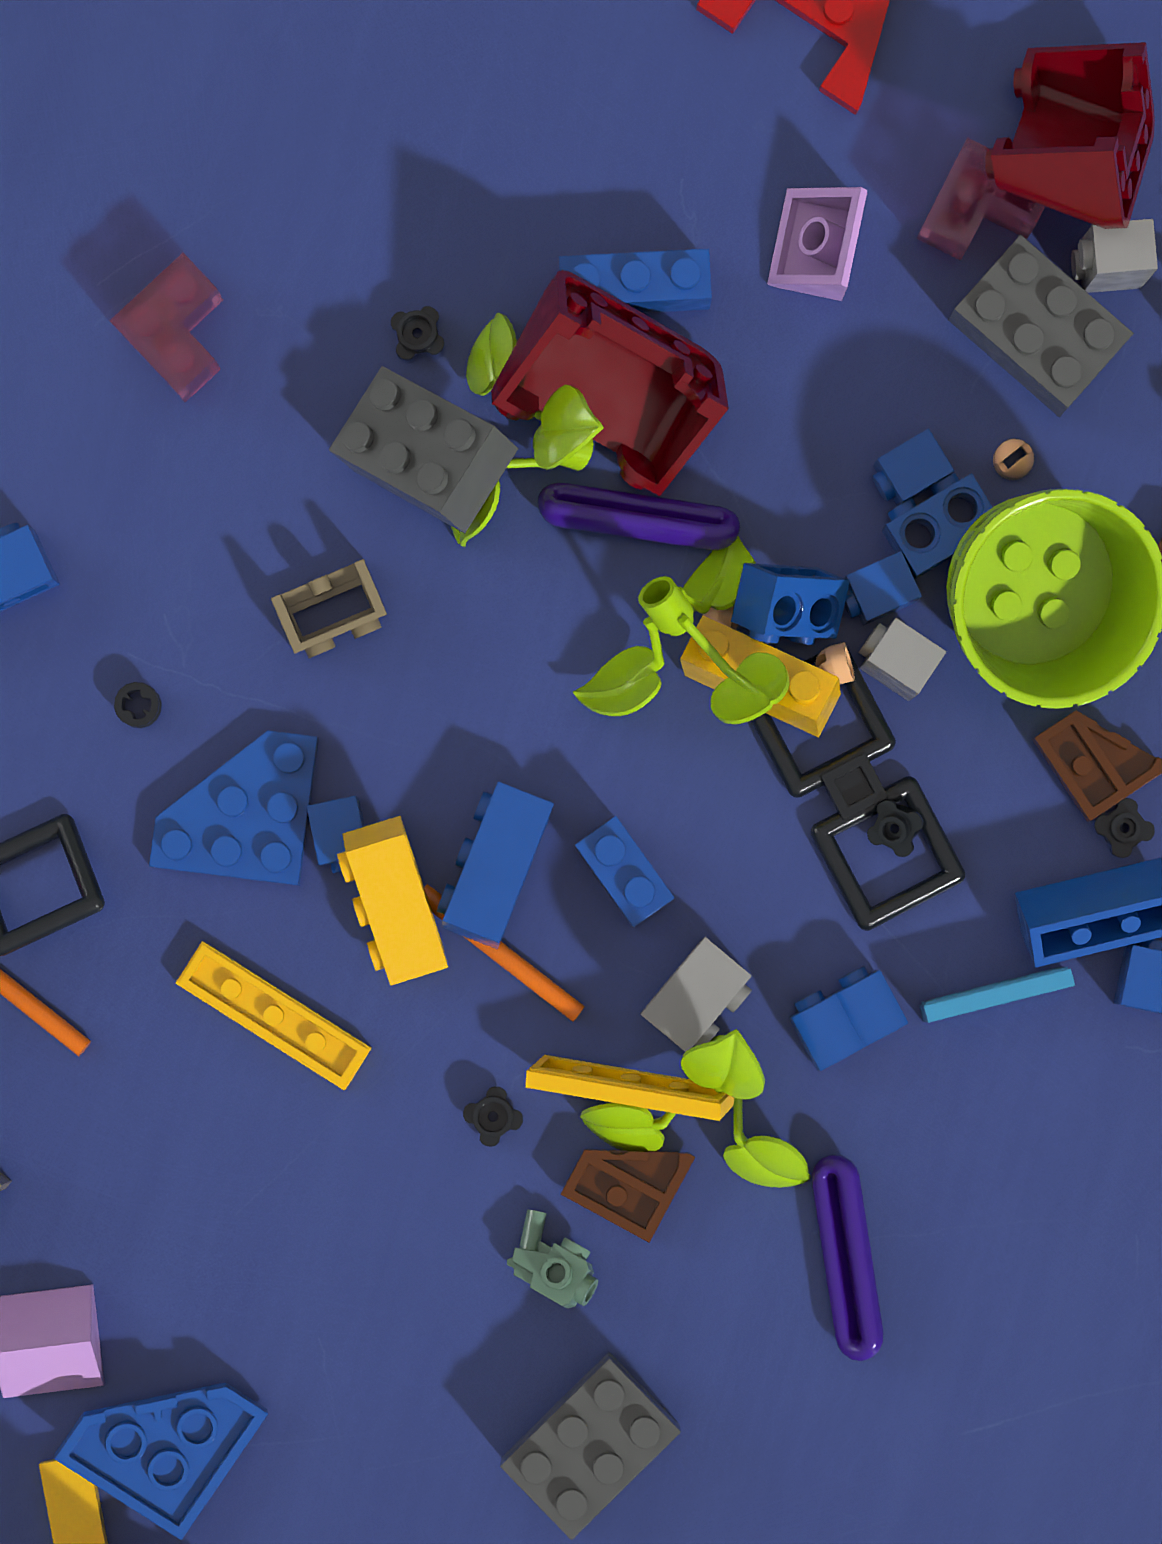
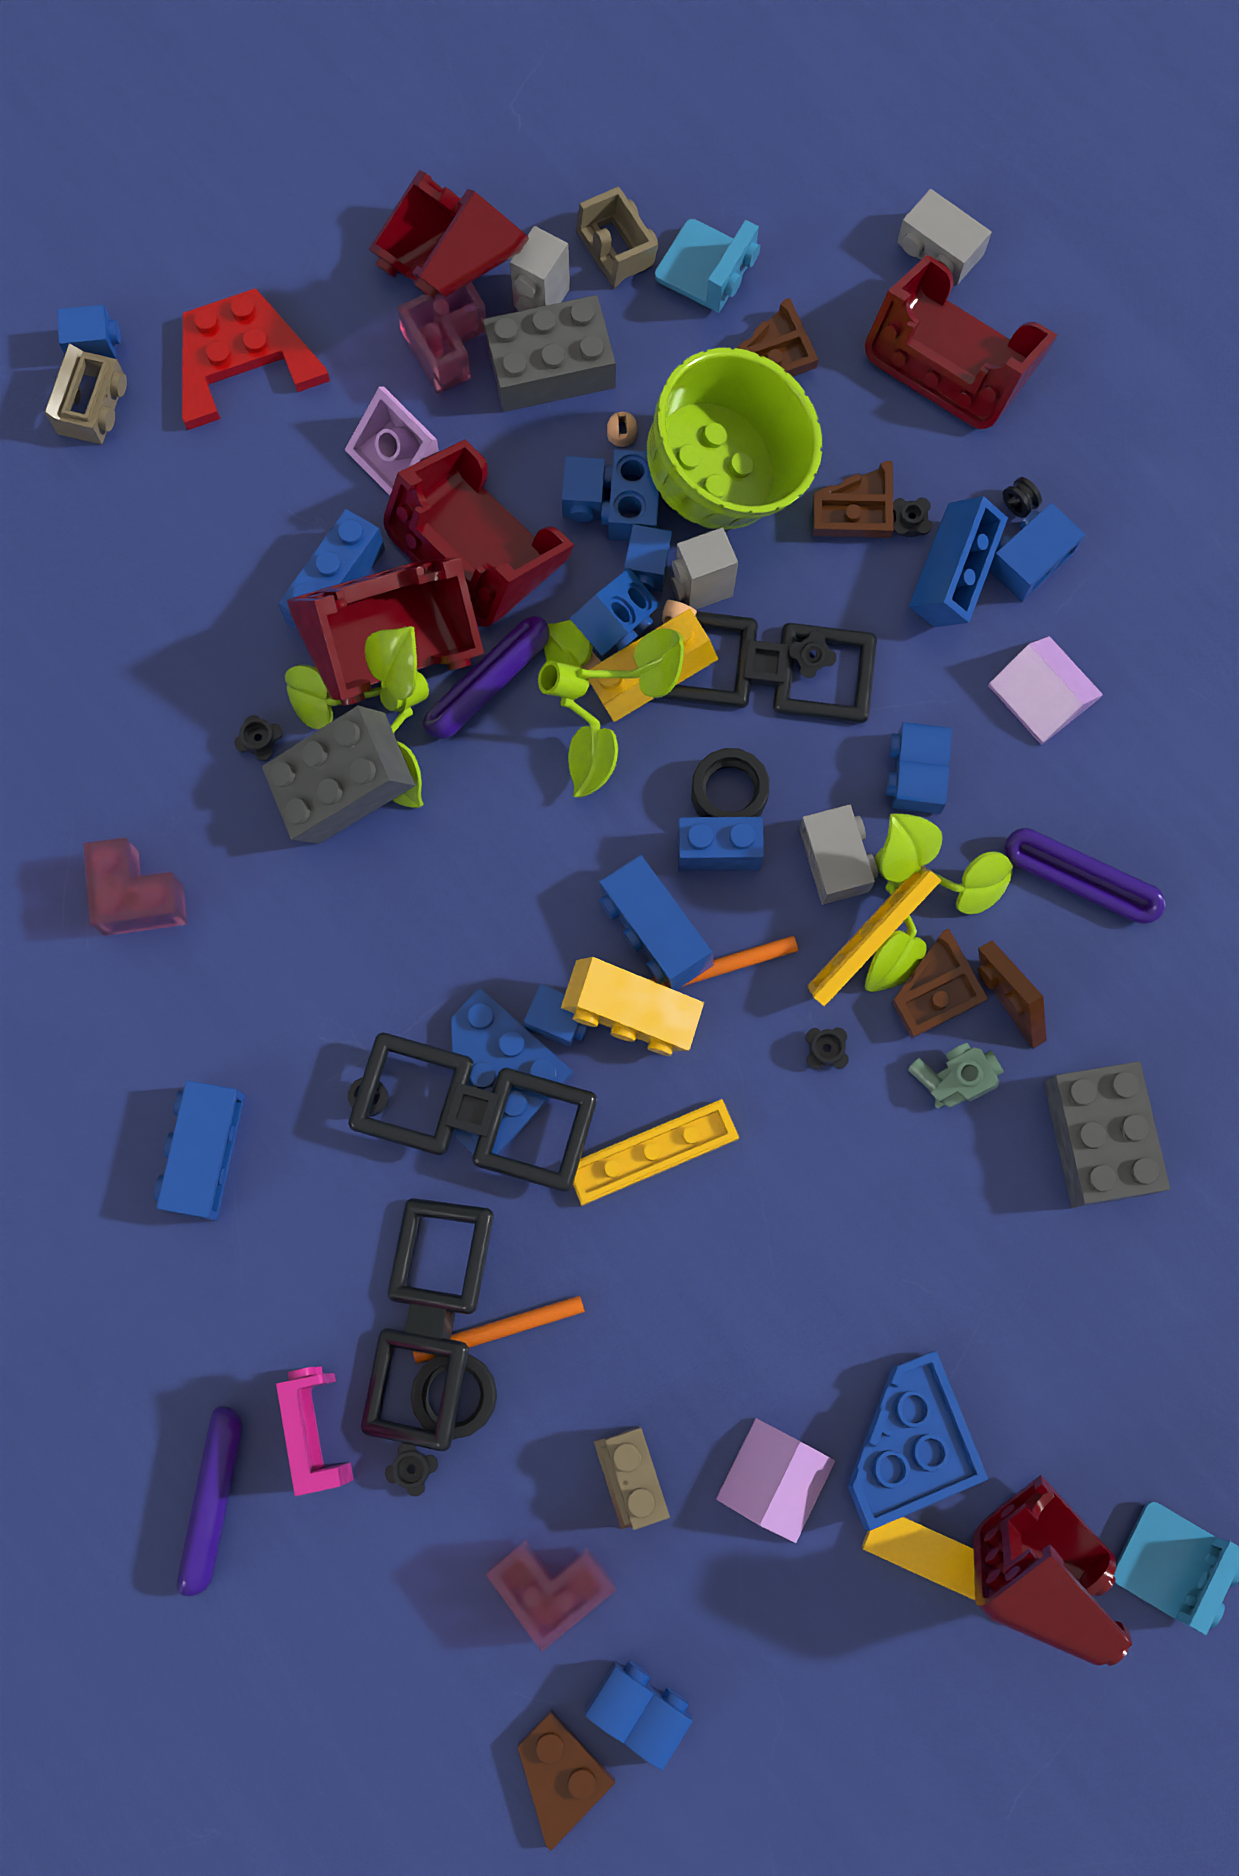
camera: 55 degrees left, 10 degrees down
(188, 818) = (473, 1111): none -> black bar
(320, 590) = (382, 910): dark tan window -> none
(667, 1271) = (1015, 993): none -> reddish brown wing
(722, 820) = (736, 759): none -> black tyre
(783, 385) = (447, 513): none -> dark red windscreen
(996, 994) = (968, 663): dark azure tile -> none
(1028, 1090) = (1044, 689): none -> lavender slope

